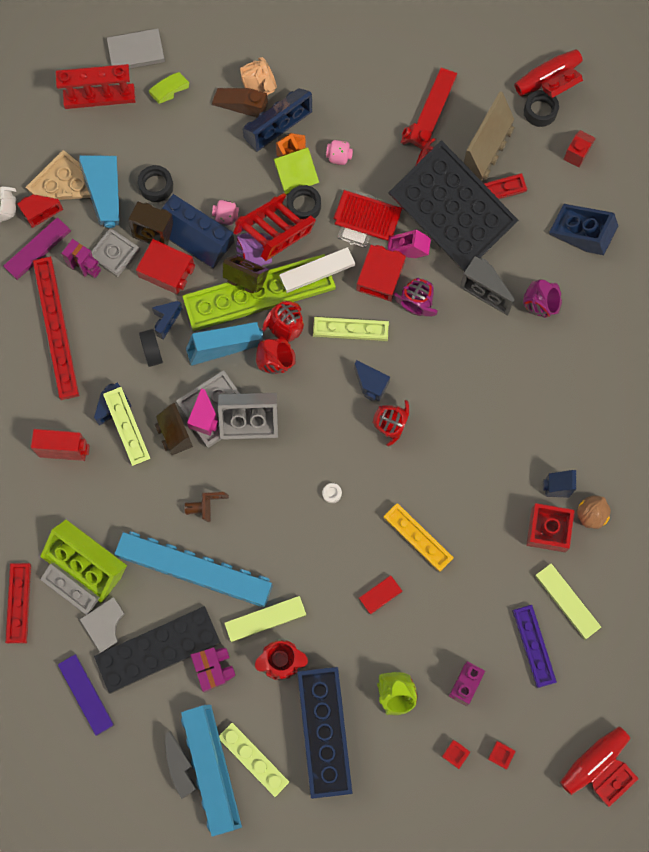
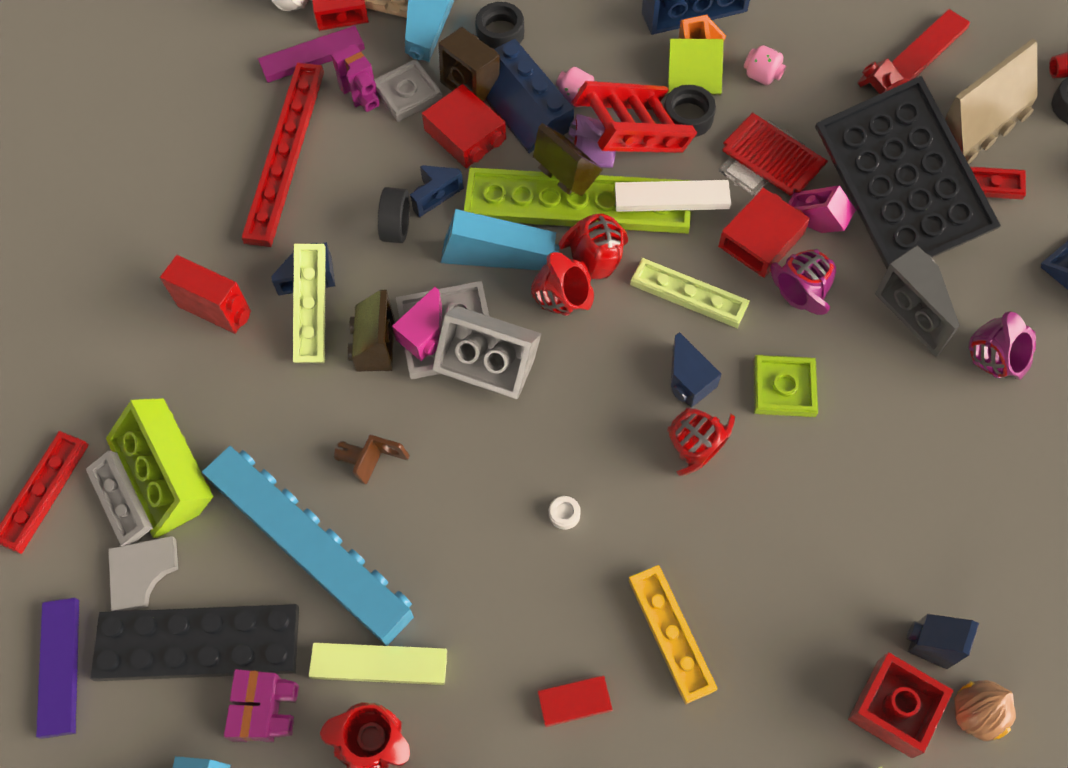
camera: 25 degrees right, 10 degrees down
(428, 367) = (785, 386): none -> lime tile

